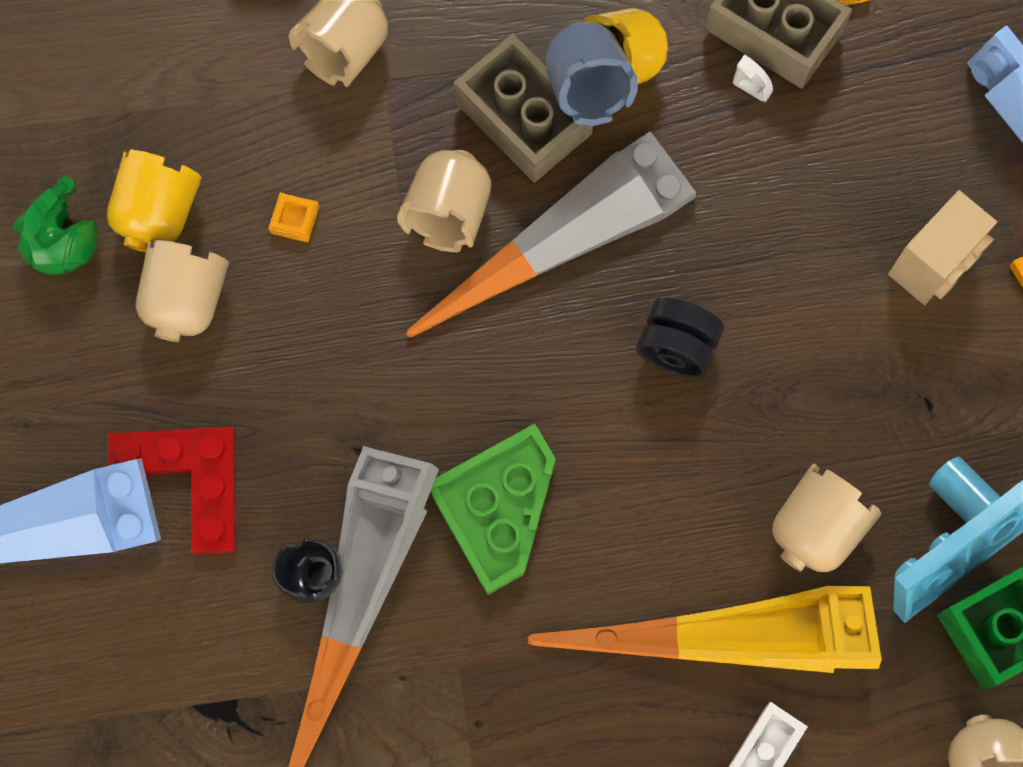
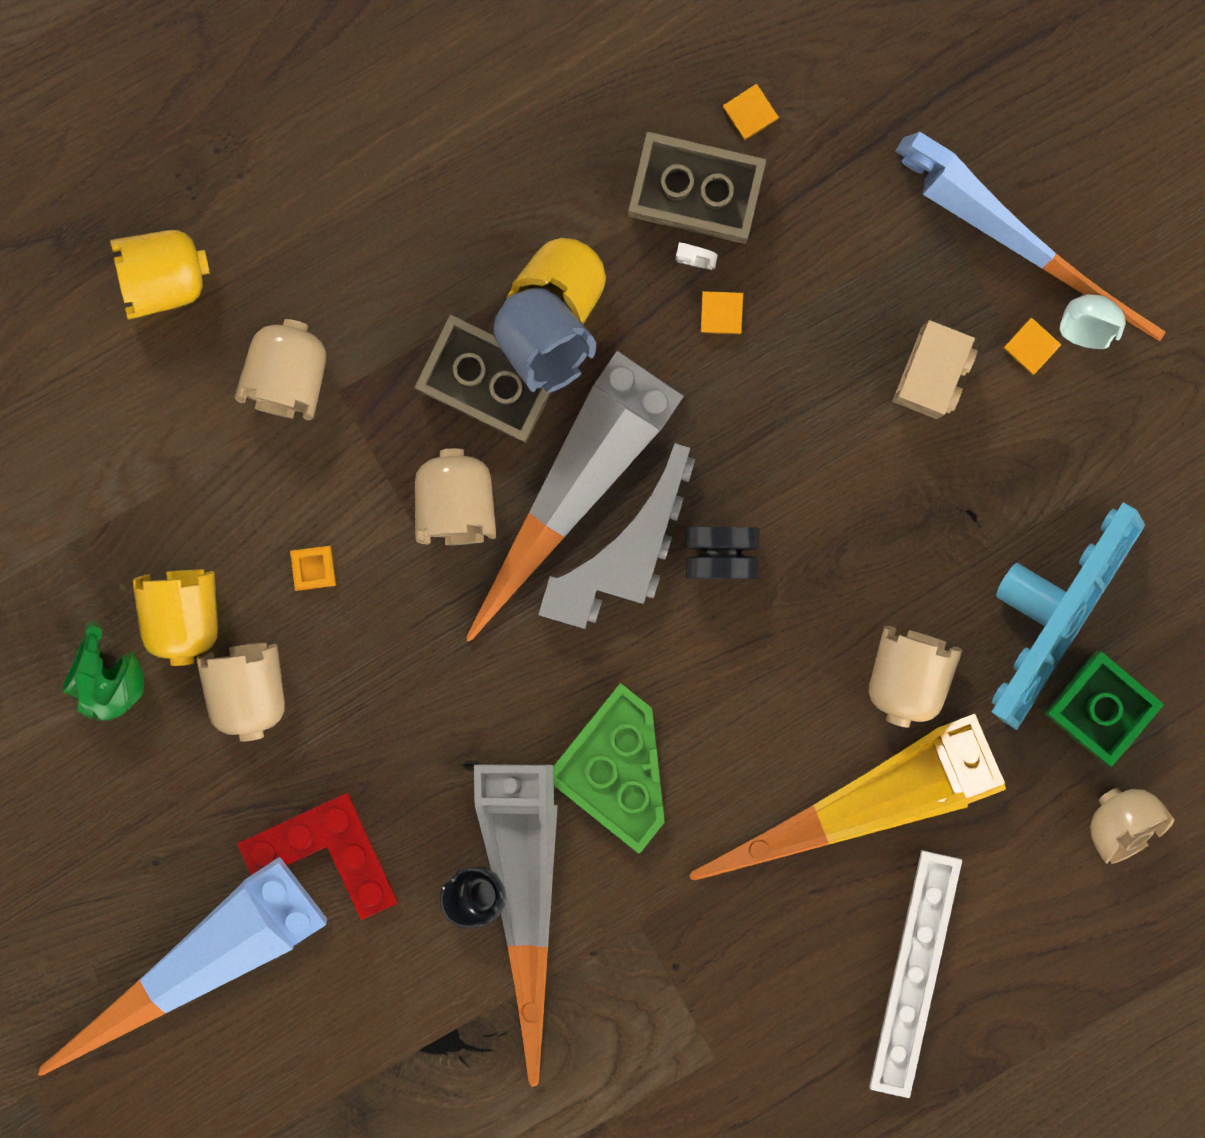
camera: 25 degrees left, 15 degrees up
(584, 316) = (629, 561): none -> light grey arch
(758, 138) = (721, 313): none -> light orange tile

